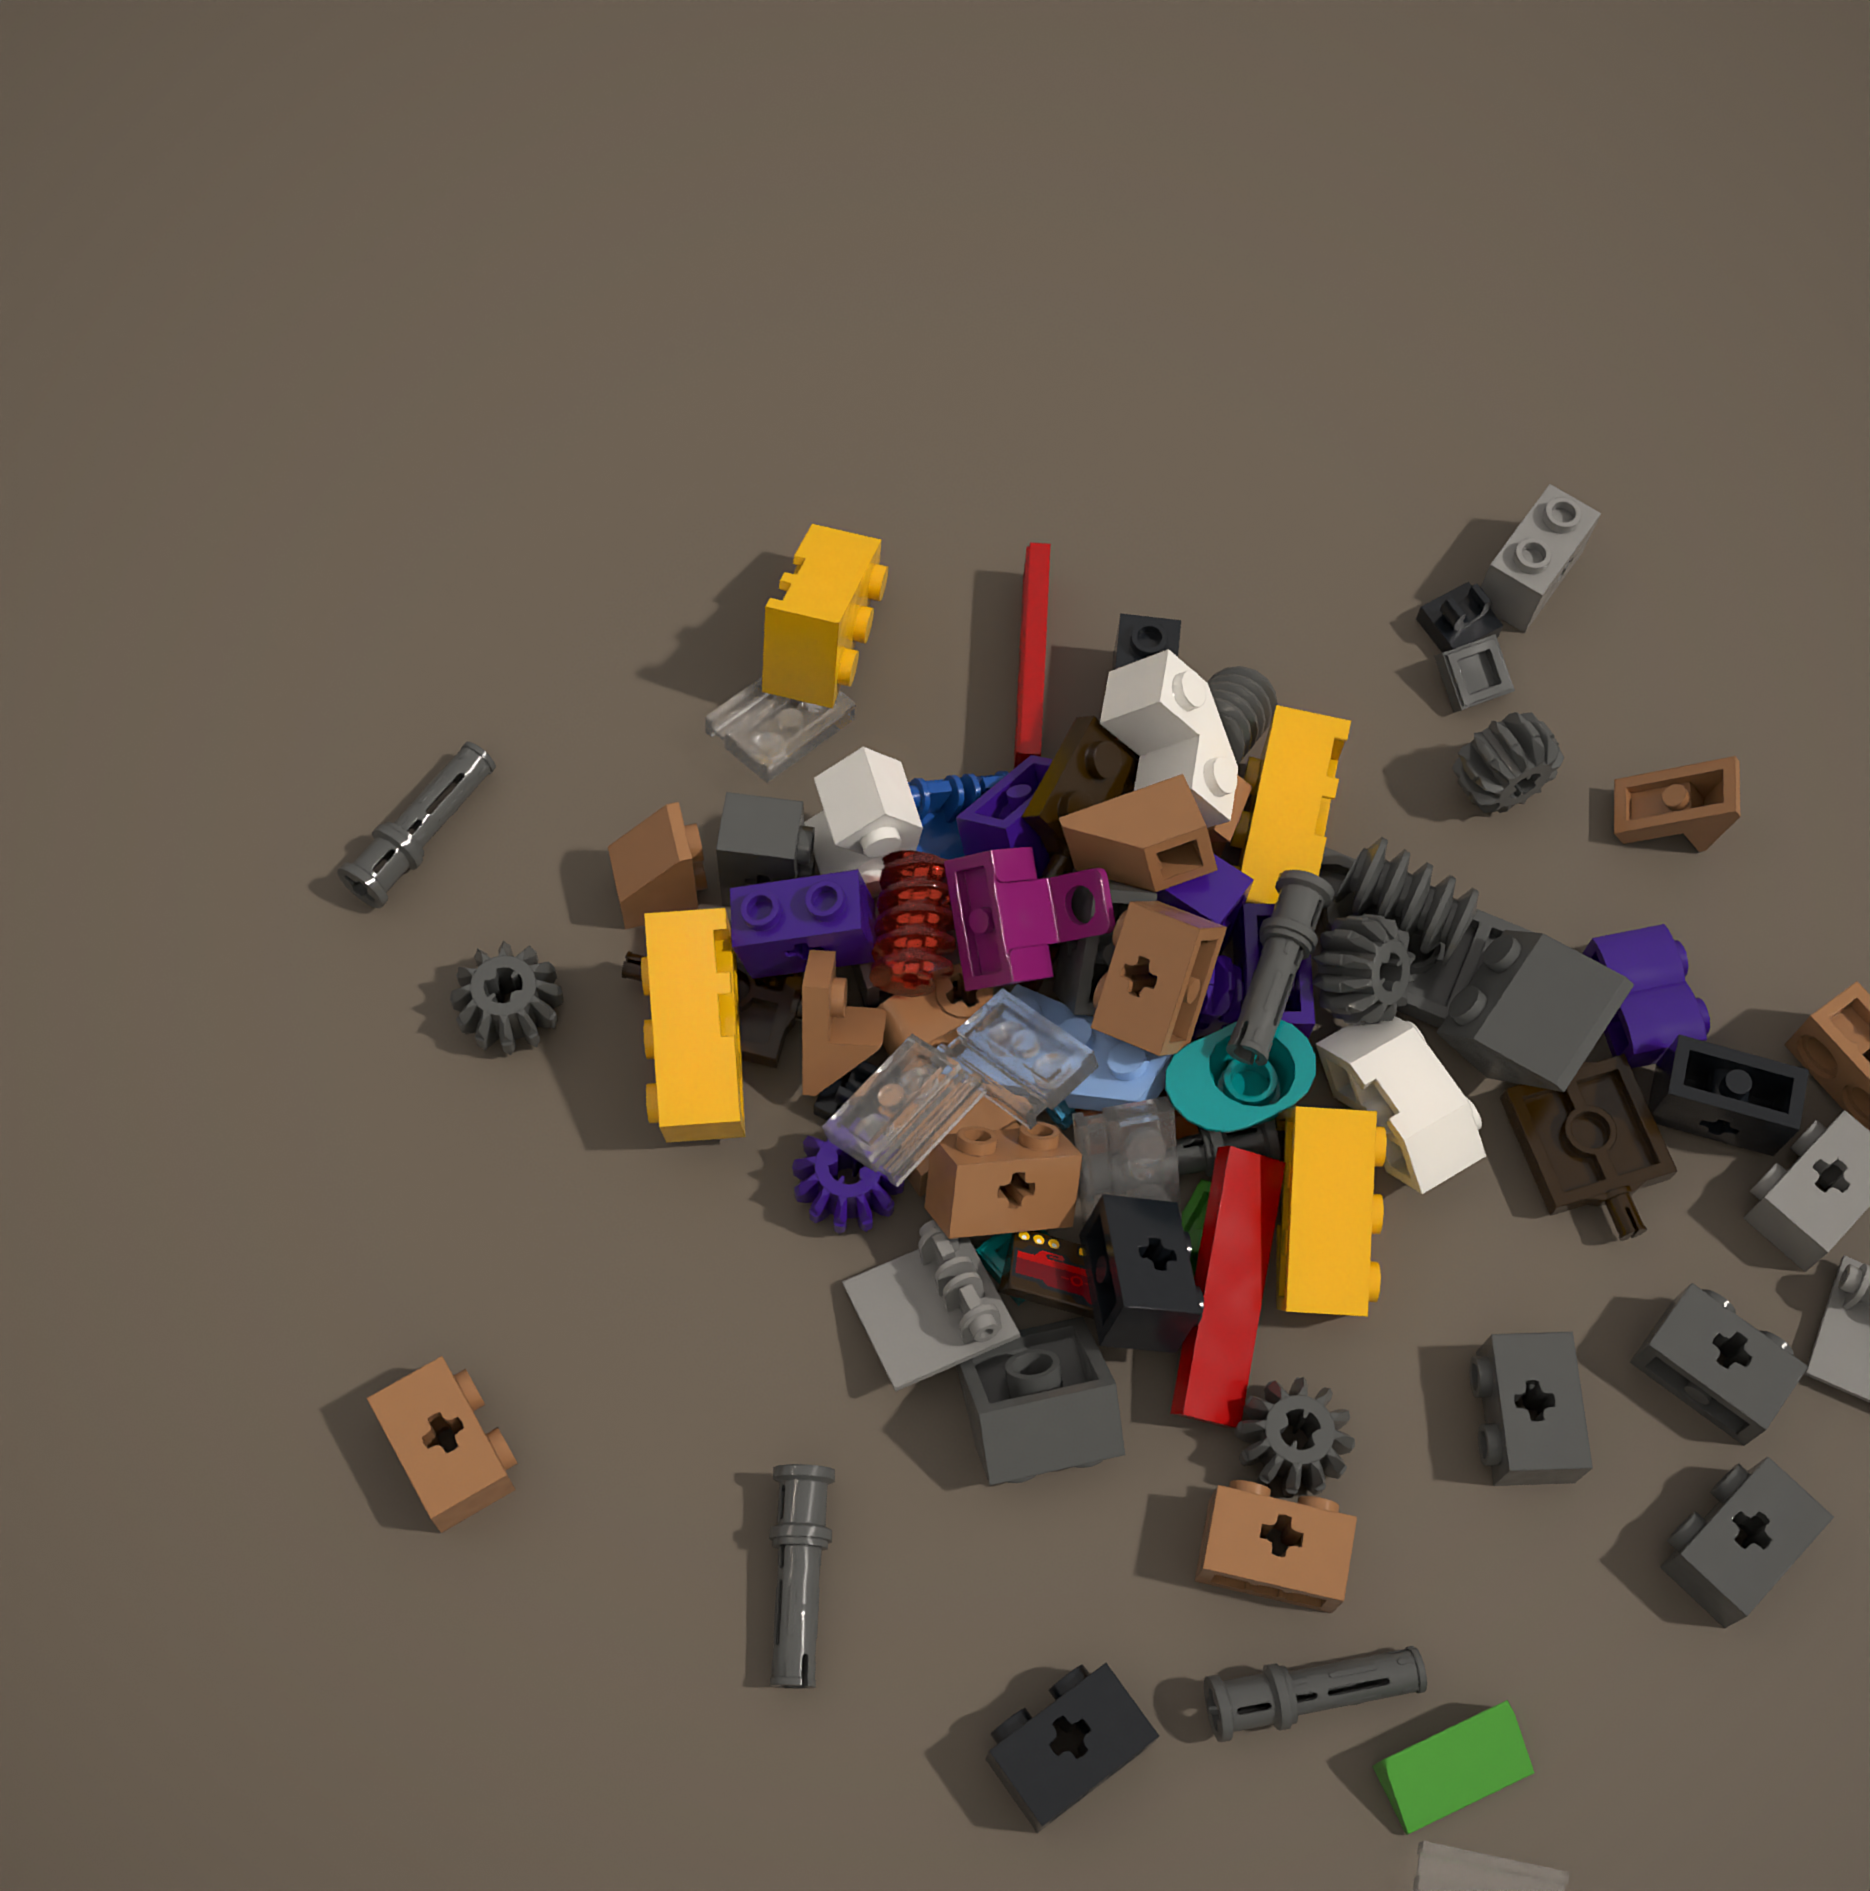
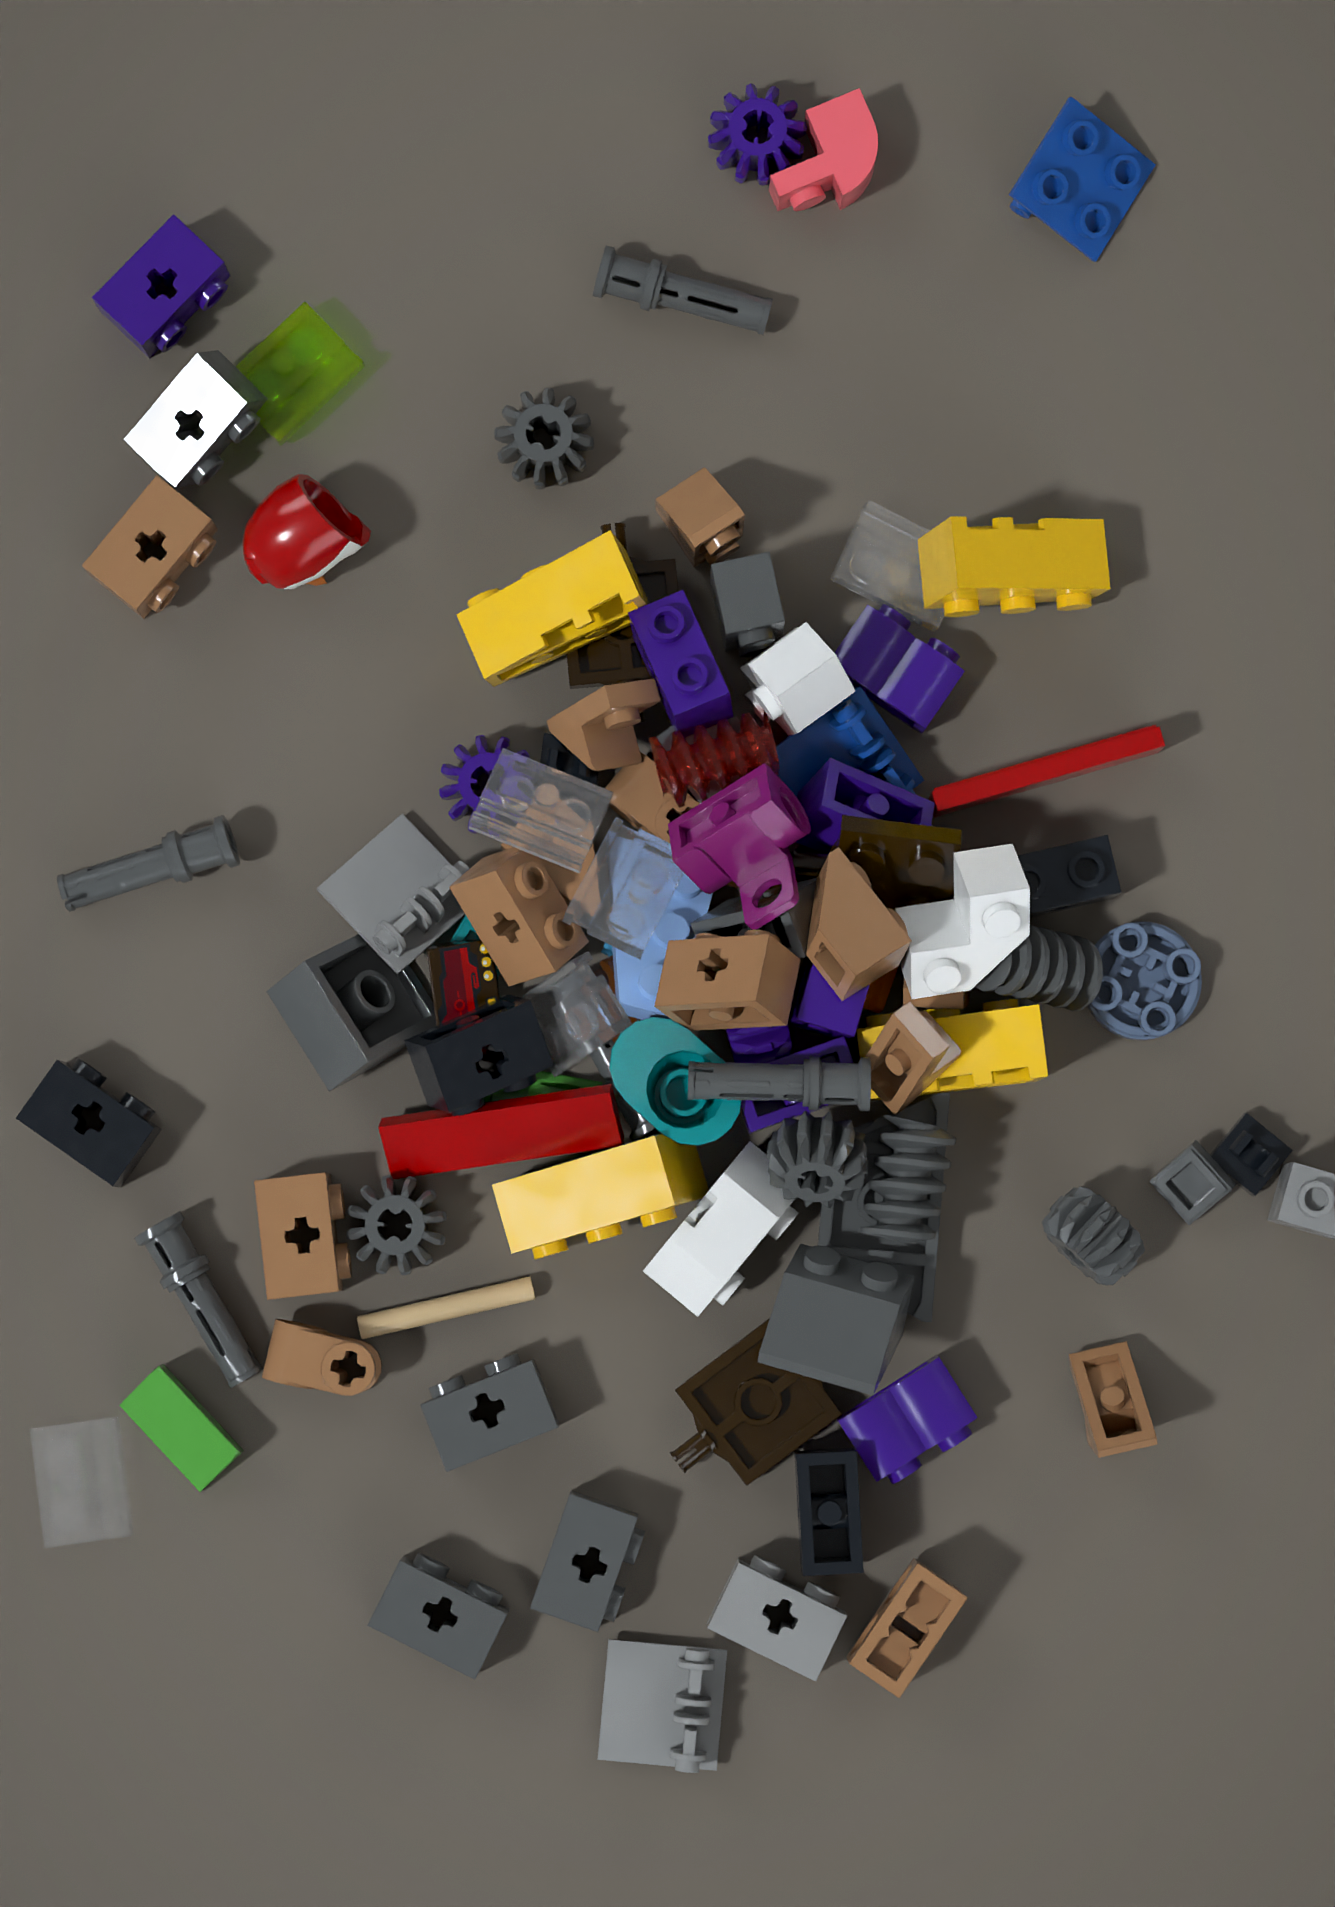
camera: 75 degrees right, 20 degrees up
(135, 1304) = (170, 258): none -> dark purple brick
(295, 701) = (758, 112): none -> dark purple gear
(320, 1227) = (298, 371): none -> clear neon green plate
(325, 1377) = (169, 432): none -> brick
(353, 633) = (844, 159): none -> coral brick
(475, 453) = (1081, 179): none -> blue hinge
(501, 1274) = (300, 534): none -> red piece
(891, 727) = (897, 667): none -> dark purple brick
(1269, 640) = (1146, 982): none -> sand blue tile
(1288, 833) = (909, 1056): none -> medium nougat slope
(1397, 1423) = (446, 1307): none -> tan piece
(1417, 1583) = (310, 1359): none -> medium nougat piece

